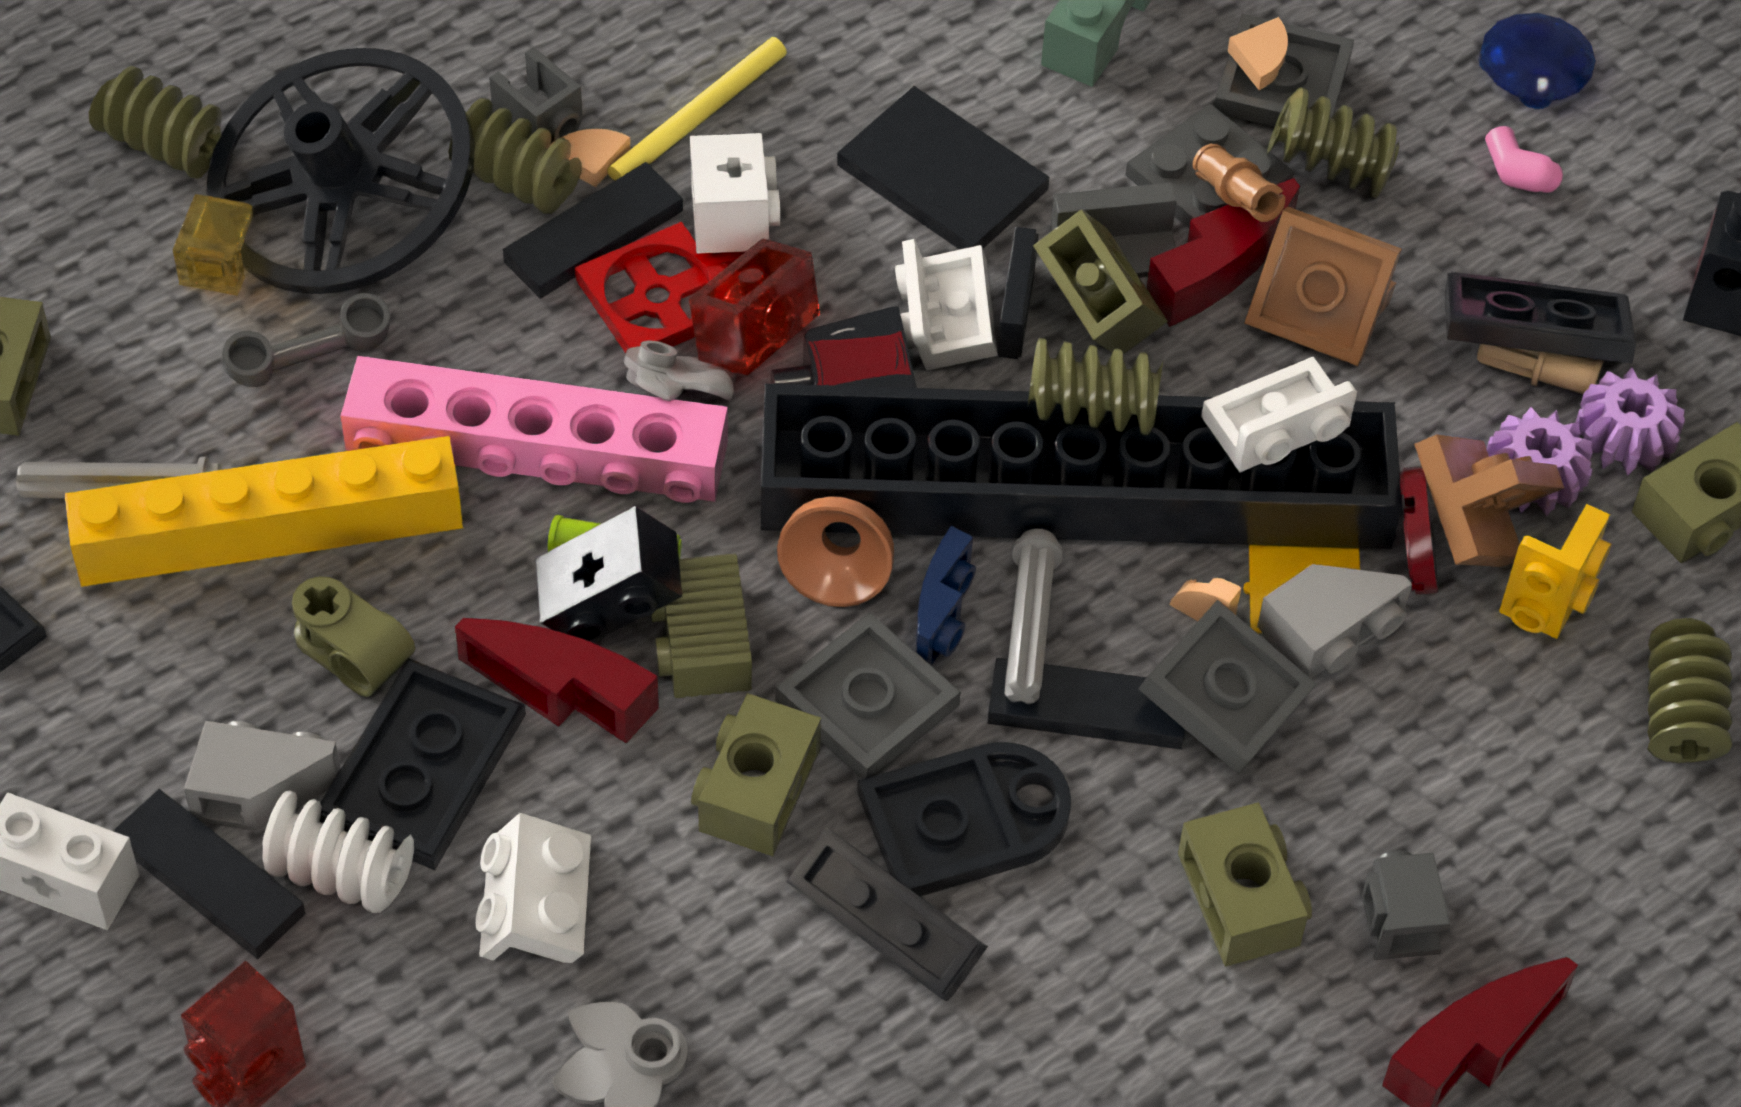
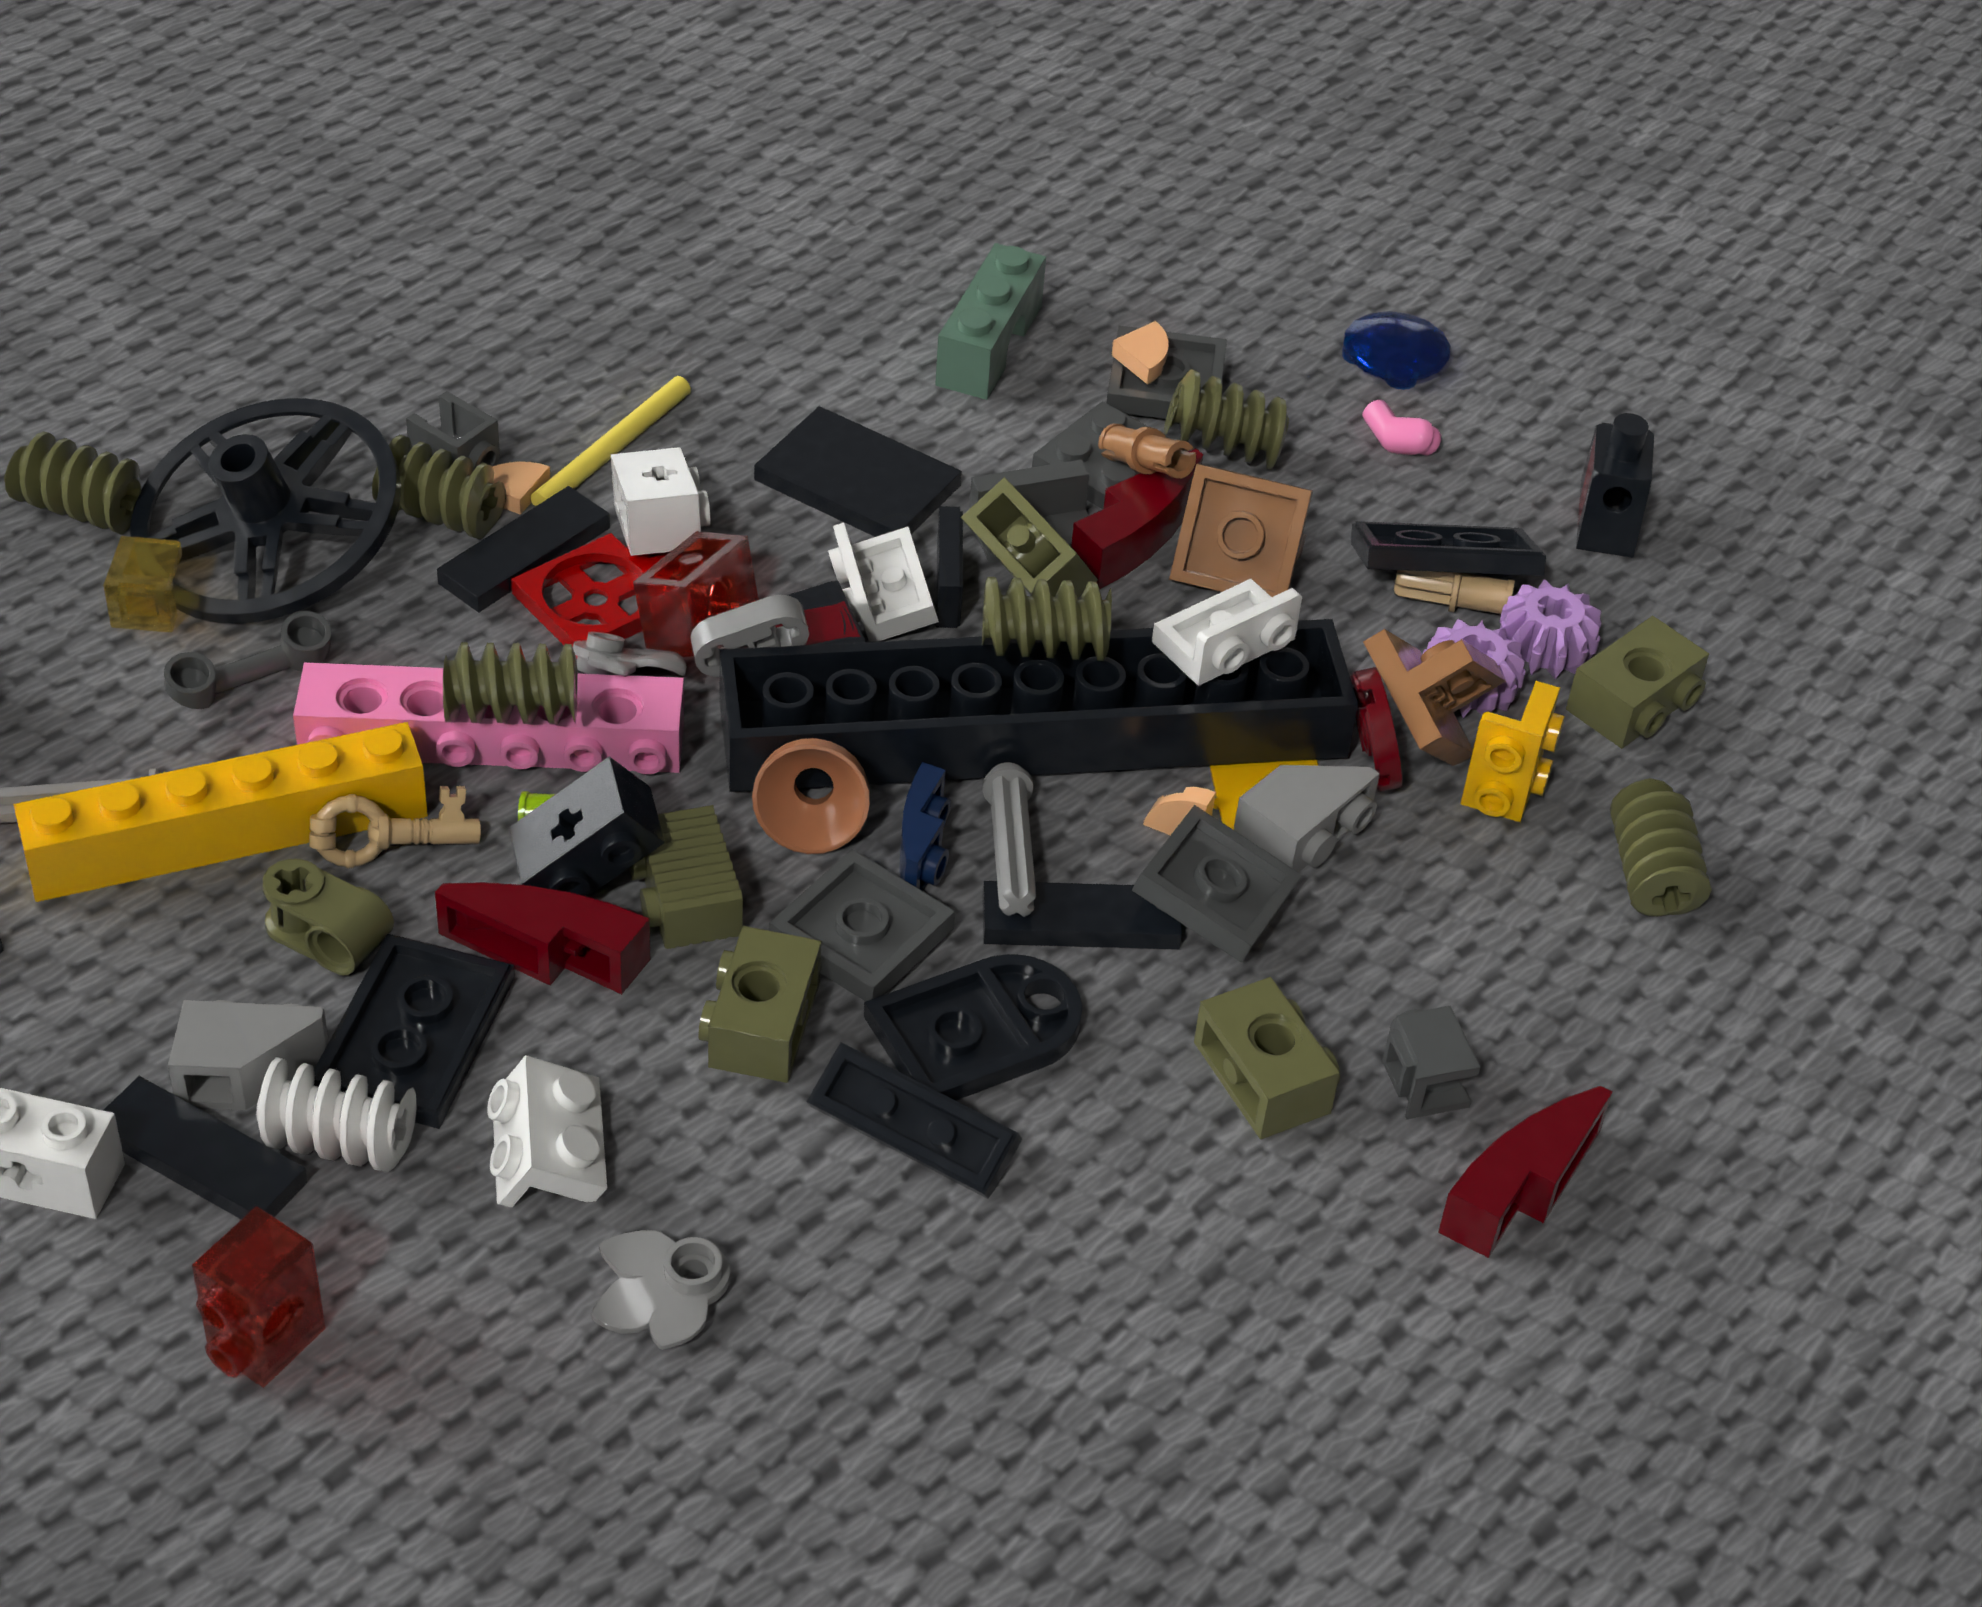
camera: 10 degrees left, 10 degrees down
(417, 545) = (383, 831): none -> tan piece
(551, 408) = (510, 684): none -> olive piece
(806, 361) = (749, 628): none -> light grey beam

